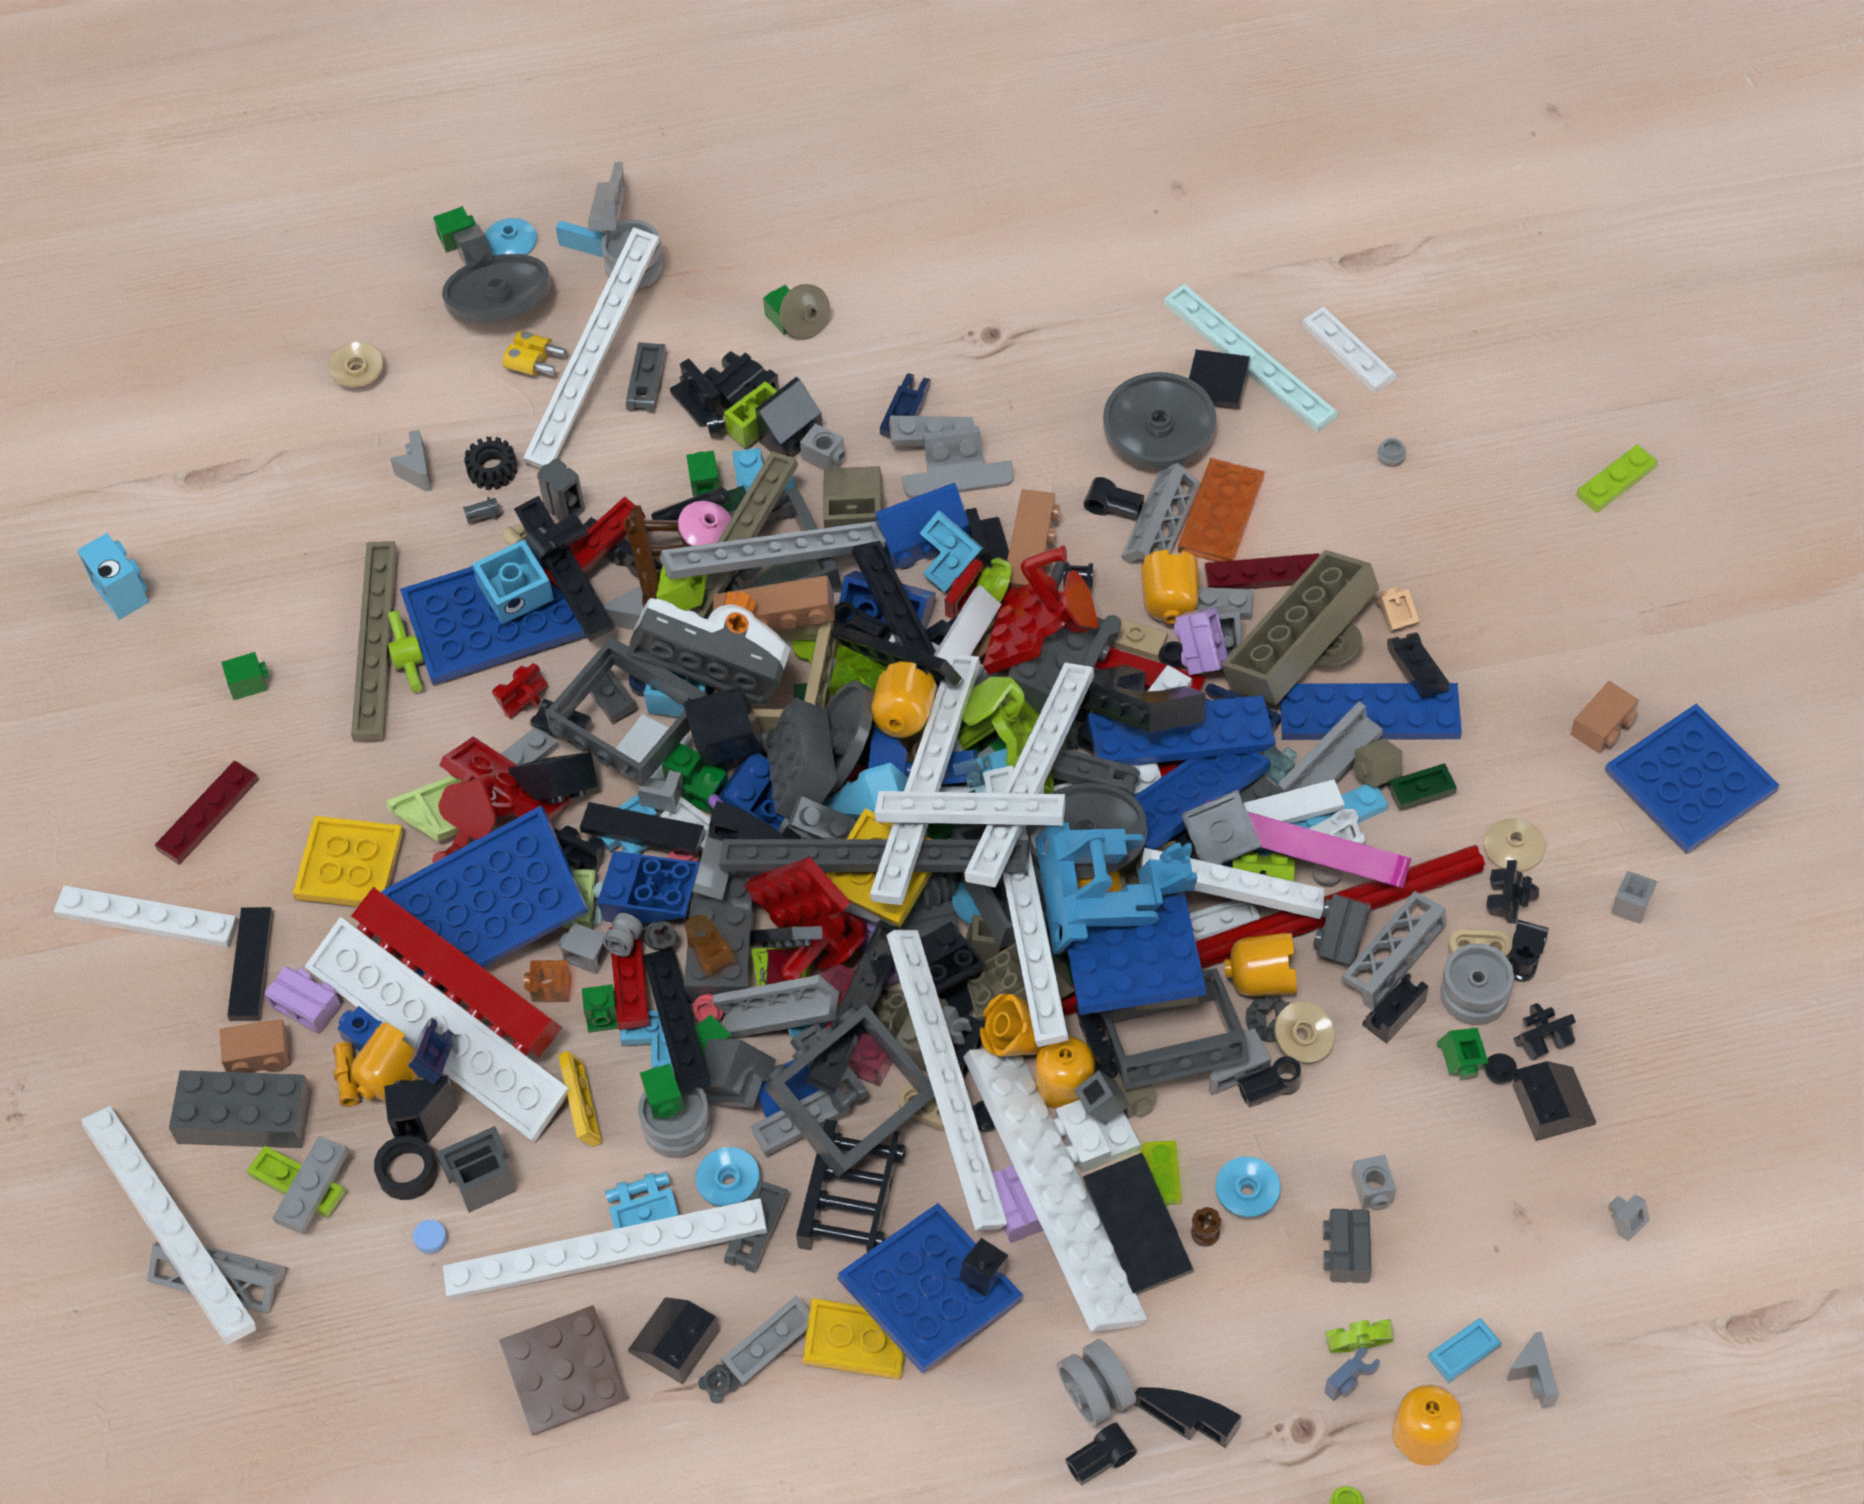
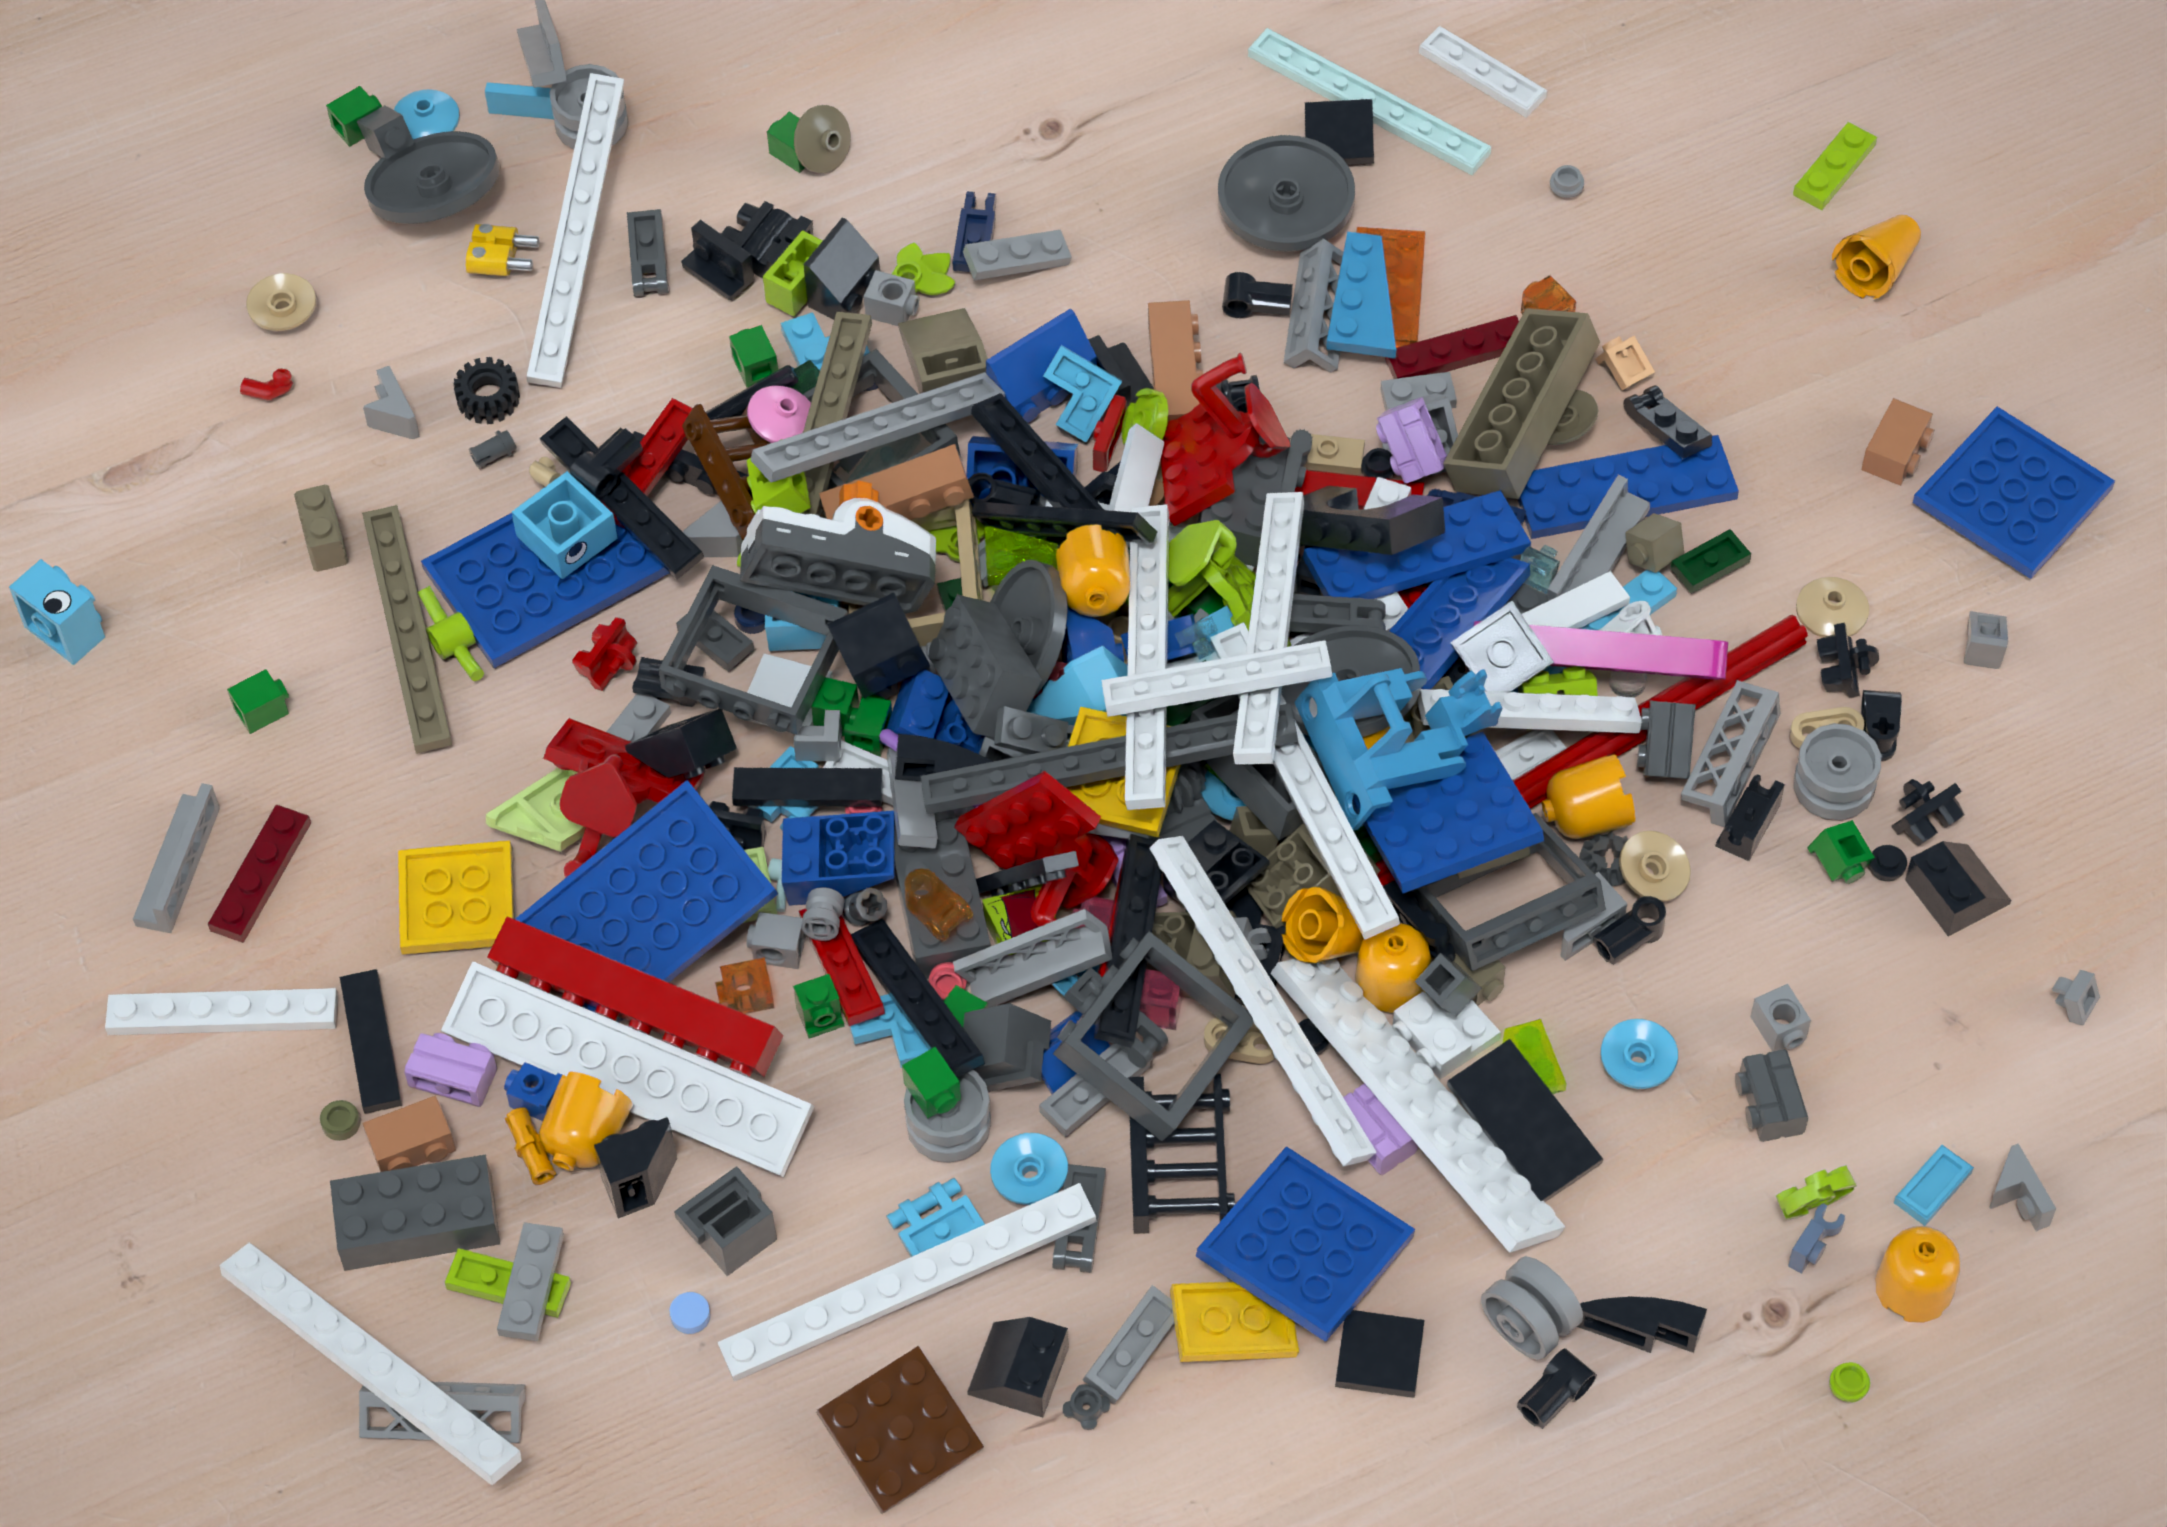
camera: 15 degrees left, 0 degrees up
(148, 790) = (177, 860): none -> light grey fence
(208, 1022) = (339, 1120): none -> olive tile
(332, 548) = (321, 528): none -> dark tan brick
(336, 429) = (268, 390): none -> red arm
(396, 1147) = (627, 1213): black tyre -> none
(431, 1052) = (639, 1094): dark blue hinge -> none
(560, 489) = (588, 404): dark grey brick -> none
(580, 1099) = (825, 1115): yellow tile -> none
(715, 424) = (751, 294): black plate -> none
(858, 431) = (927, 270): none -> lime plate
(956, 458) = (1052, 283): light grey plate -> none
(966, 1392) = (1380, 1353): none -> black tile
(983, 1267) = (1365, 1205): black brick -> none
(1169, 584) = (1355, 383): light orange cylinder -> none
(1196, 516) = (1362, 306): none -> dark azure wing
(1200, 1220) = (1597, 1101): reddish brown bush -> none
(1347, 543) = (1547, 295): none -> clear orange brick
(1629, 558) = (1876, 255): none -> light orange cone

